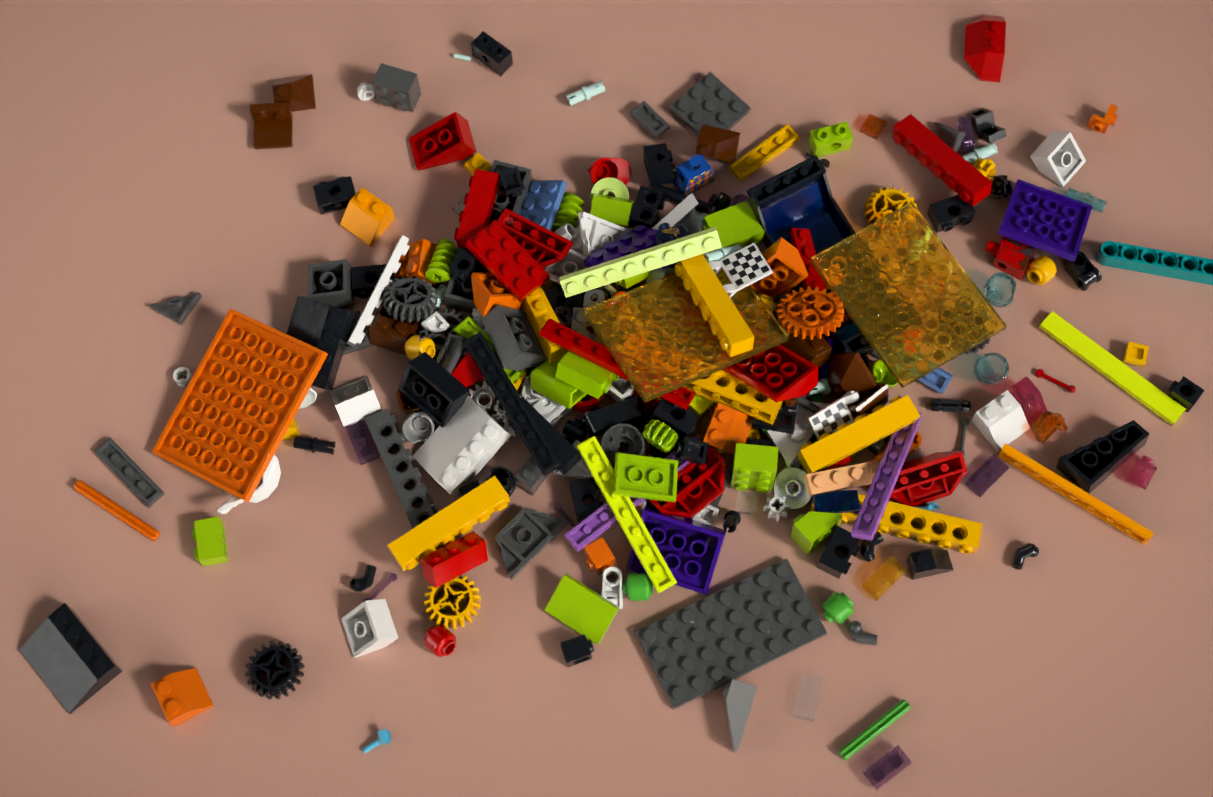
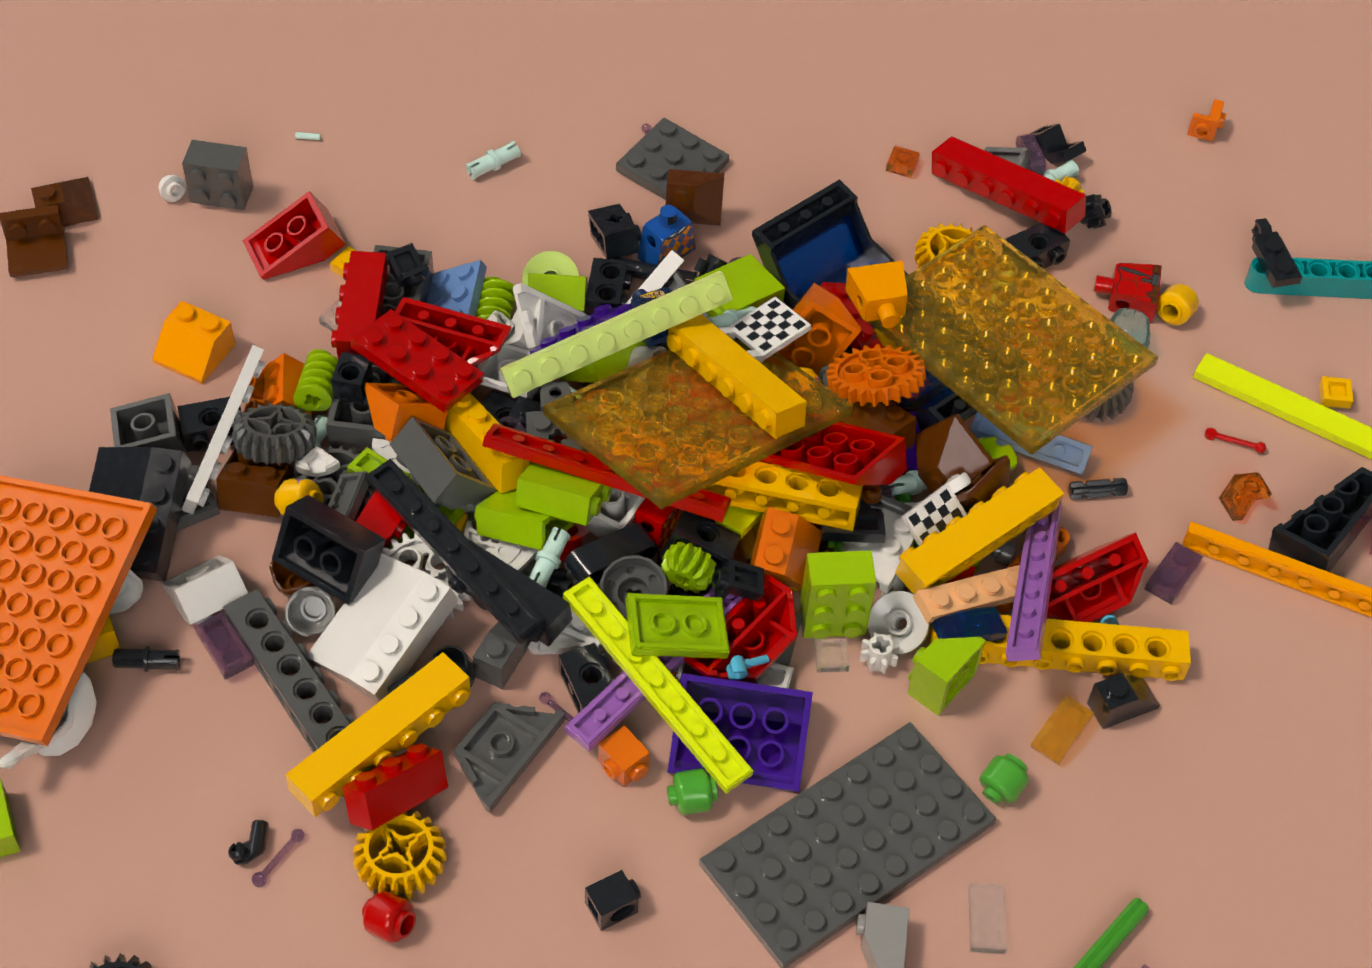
camera: 15 degrees left, 15 degrees down
(330, 203) = (138, 319): black brick -> none
(369, 627) = (268, 913): white slope -> none
(492, 53) = (350, 124): black brick -> none
(572, 416) = (549, 556): none -> light aqua pin
(581, 609) = (609, 835): lime tile -> none
(610, 167) = (542, 239): red piece -> none
(613, 591) = (652, 805): white piece -> none
(649, 120) = (590, 183): dark grey plate -> none
(679, 510) = (738, 668): none -> medium azure hand
(732, 519) = (813, 672): black pin -> none
(764, 152) = (759, 207): yellow tile -> none
(824, 251) = (878, 291): none -> light orange torso
(830, 139) = (857, 172): lime brick -> none
(830, 561) = (981, 718): black brick -> none
(860, 636) = (1045, 817): dark grey arm -> none
(867, 547) = (1027, 689): black arm -> none
(965, 422) = (1124, 508): dark grey hinge -> none
(985, 47) = (1031, 56): red wedge -> none
(991, 368) = (1142, 431): clear light blue hair -> none
(1001, 420) = (1174, 496): white slope -> none
(1022, 553) = (1253, 668): black arm -> none
(1029, 398) = (1203, 465): clear pink slope -> none
(1045, 220) = (1167, 241): dark purple plate -> none
(1058, 157) = (1162, 169): white slope -> none
(1083, 271) = (1230, 298): black piece -> none
(1098, 204) = (1212, 216): clear light blue pin -> none
(1118, 243) = (1274, 255): none -> black hinge

